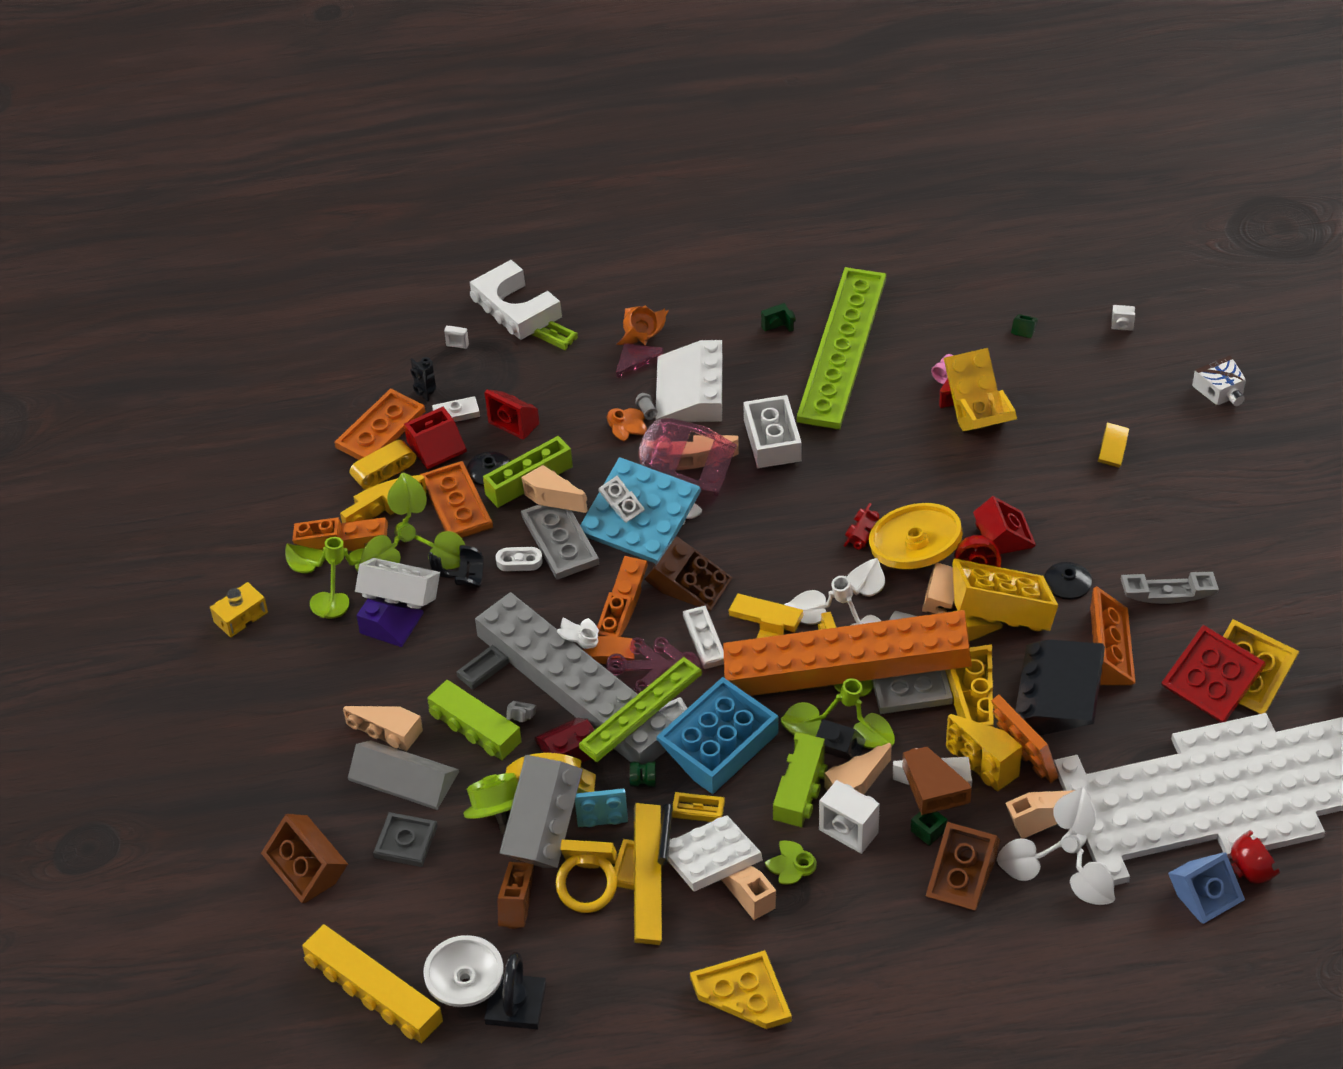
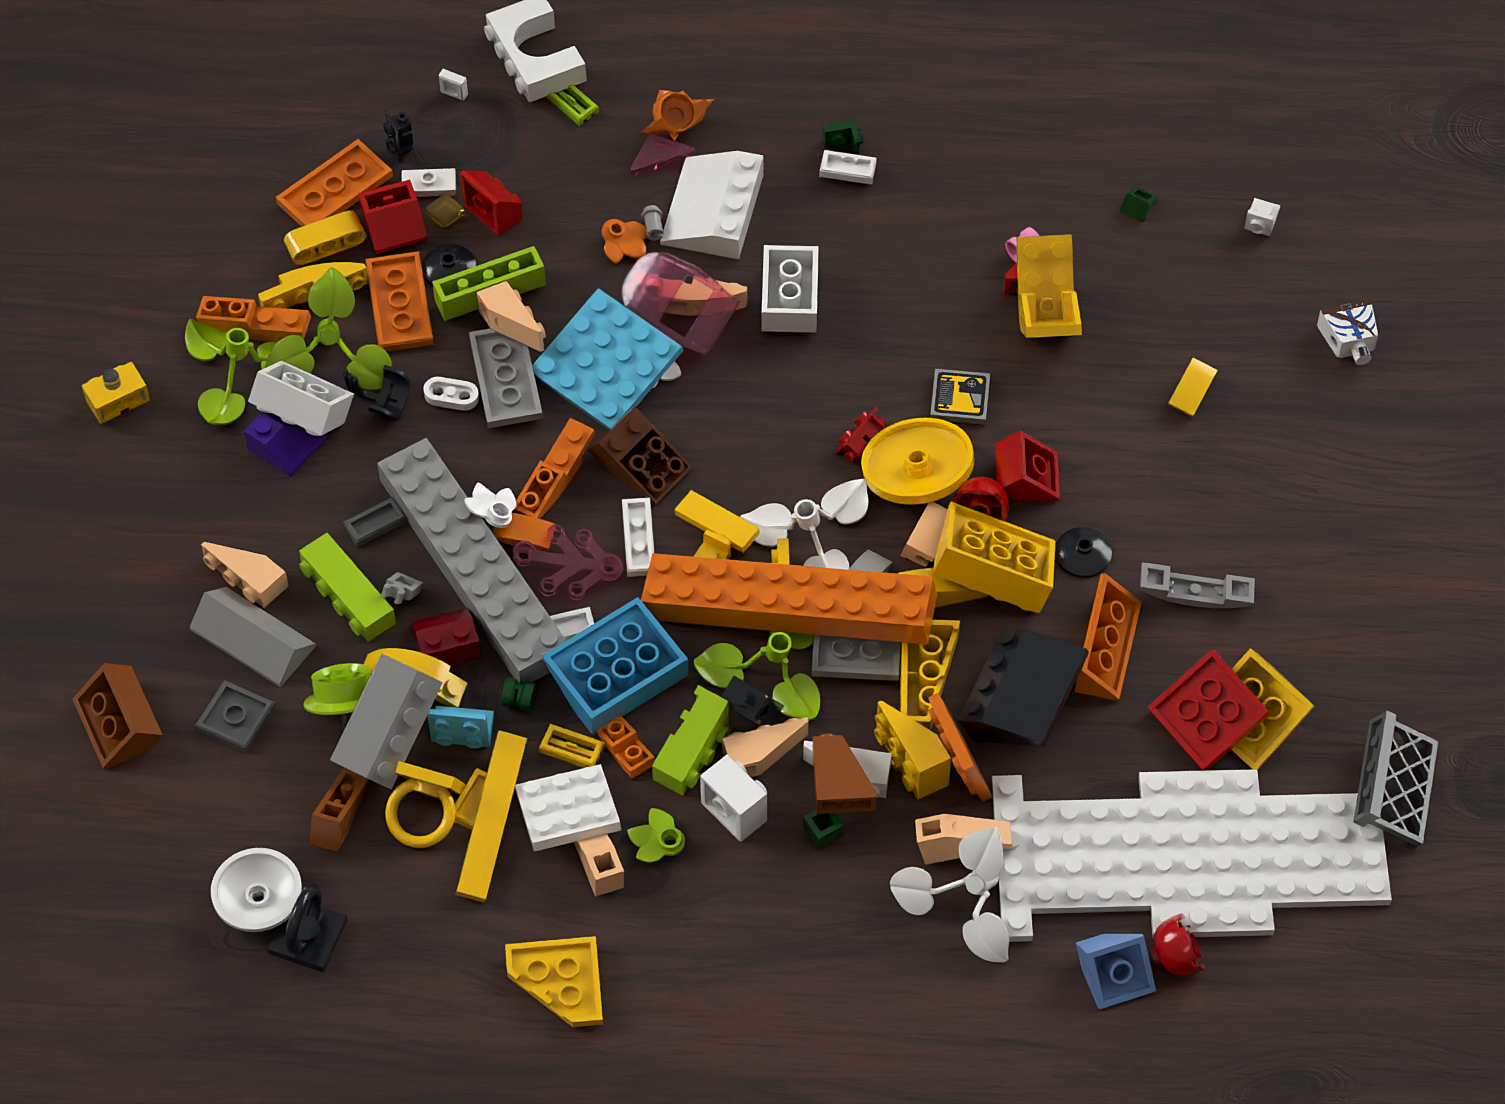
camera: 10 degrees right, 10 degrees up
(372, 984) = (155, 881): yellow brick -> none
(475, 428) = (445, 210): none -> clear yellow tile
(621, 500) = (585, 344): white slope -> none
(640, 709) = (532, 618): lime tile -> none
(665, 834) = (522, 774): black bar -> none
(742, 797) = (625, 746): none -> orange slope
(788, 339) = (848, 167): none -> white plate
(841, 348) = (908, 190): lime plate -> none
(932, 485) = (960, 396): none -> tile
(963, 866) = (846, 884): dark orange slope -> none

